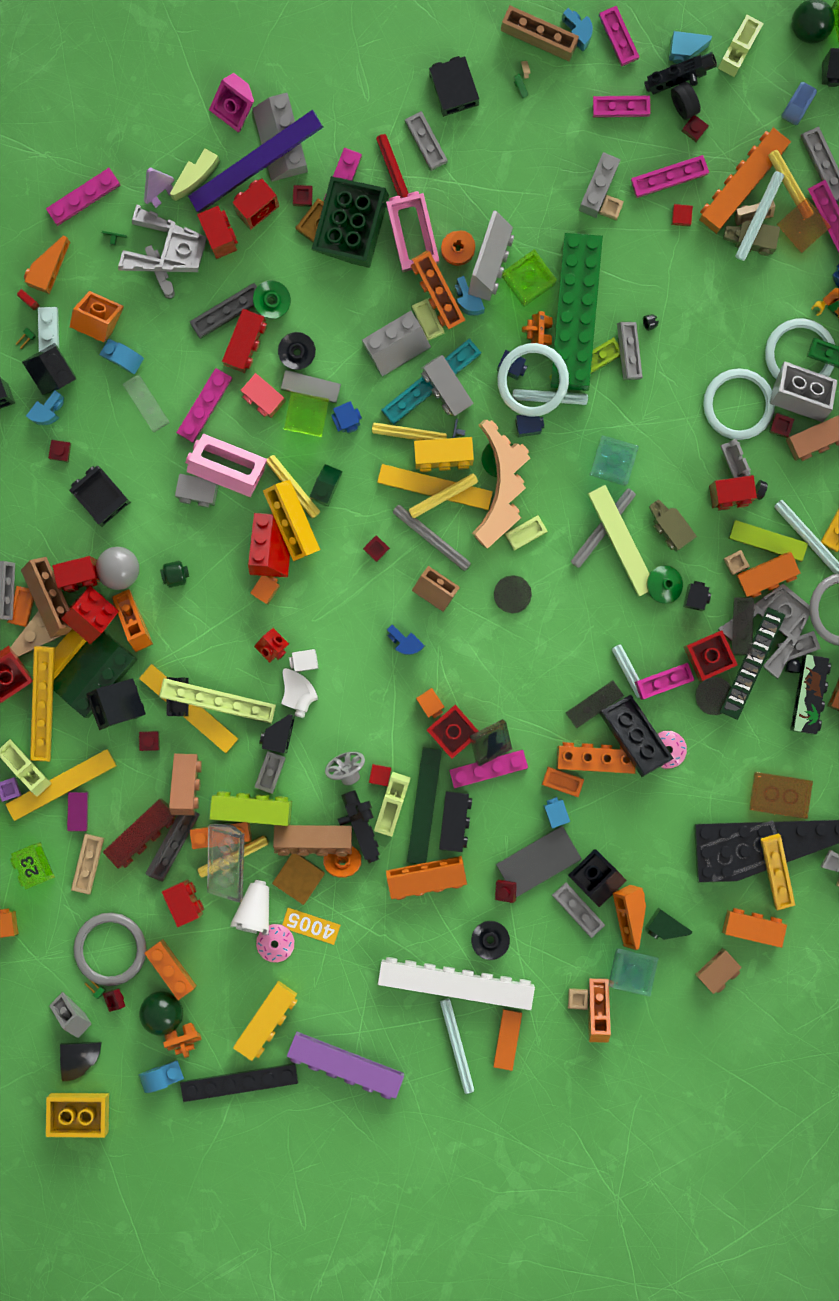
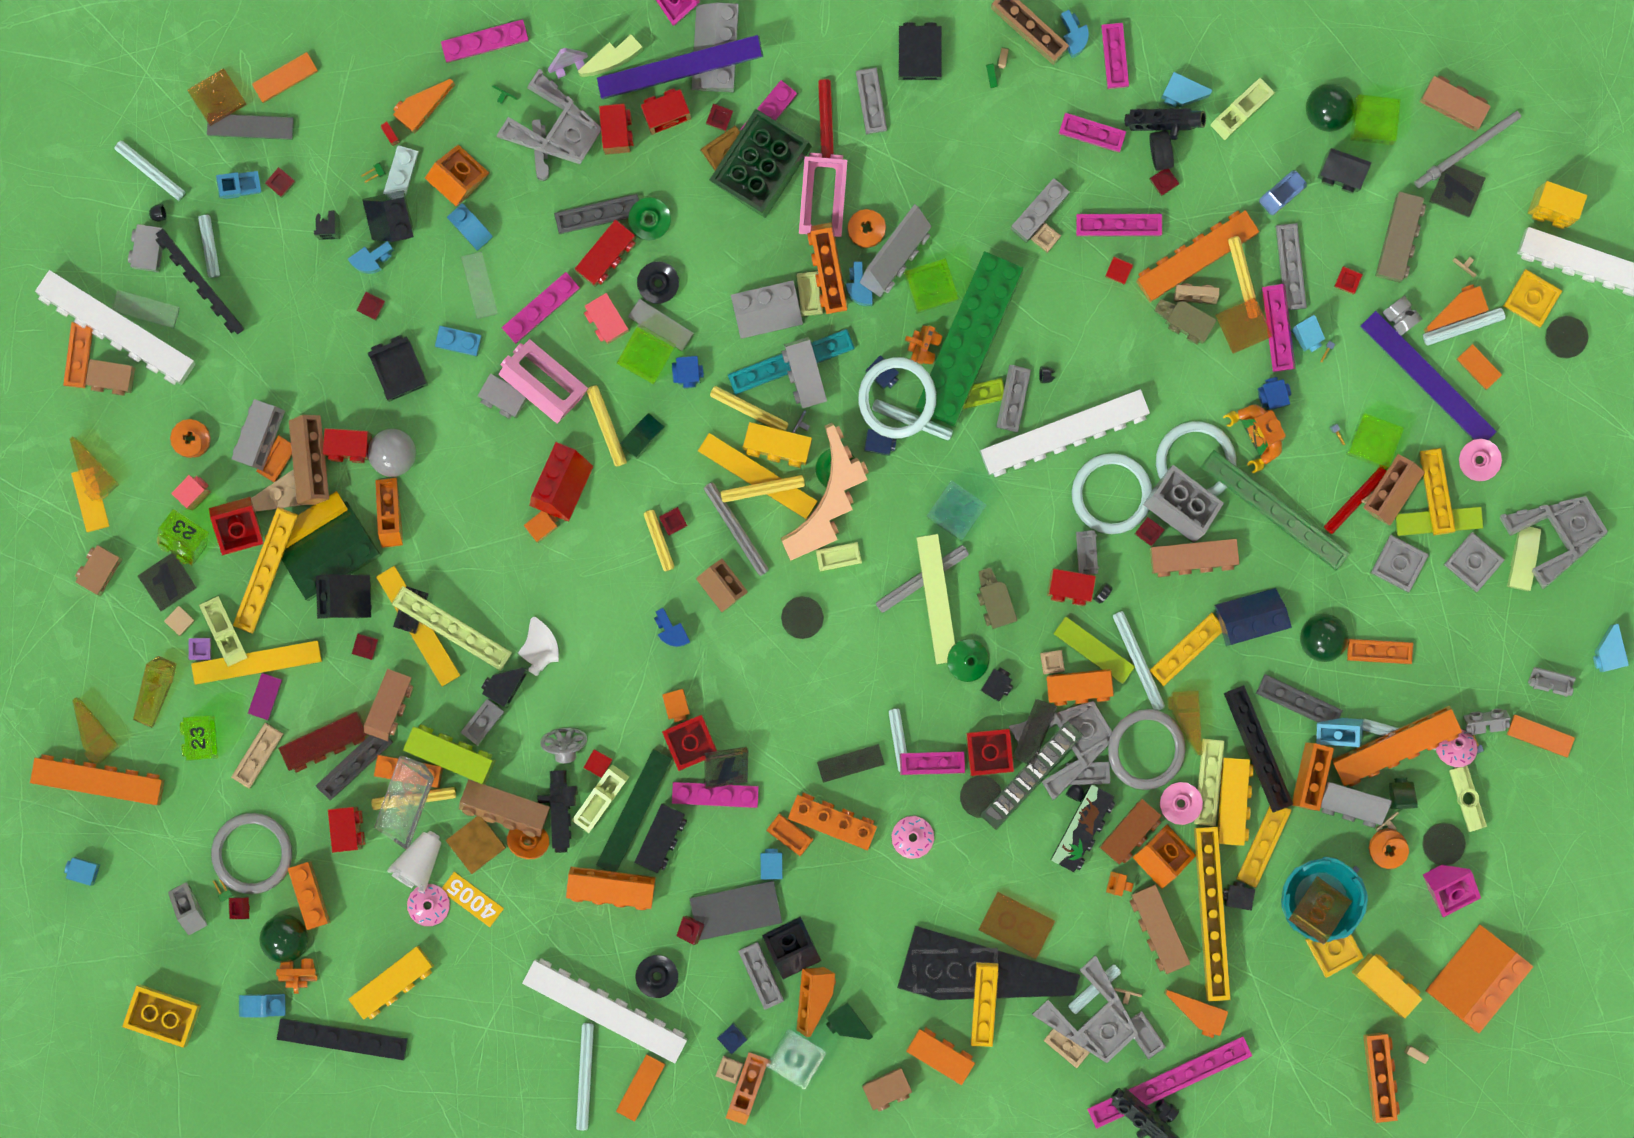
camera: 20 degrees right, 0 degrees up
(77, 1058) = (180, 957): black brick -> none
(90, 614) = (347, 493): red brick -> none
(143, 456) = (458, 341): none -> dark azure plate
(174, 574) = (450, 478): dark green head -> none
(272, 645) = (528, 588): red brick -> none
(291, 520) = (592, 462): yellow brick -> none
(304, 660) = (557, 615): white brick -> none
(345, 1065) = (460, 1057): medium lavender brick -> none
(370, 570) = (659, 541): none -> light yellow axle
(572, 971) = (732, 1038): none -> dark blue brick
(636, 735) = (882, 811): black tile -> none
(682, 365) = (1065, 432): none -> white brick
(759, 216) = (1197, 301): light aqua axle -> none

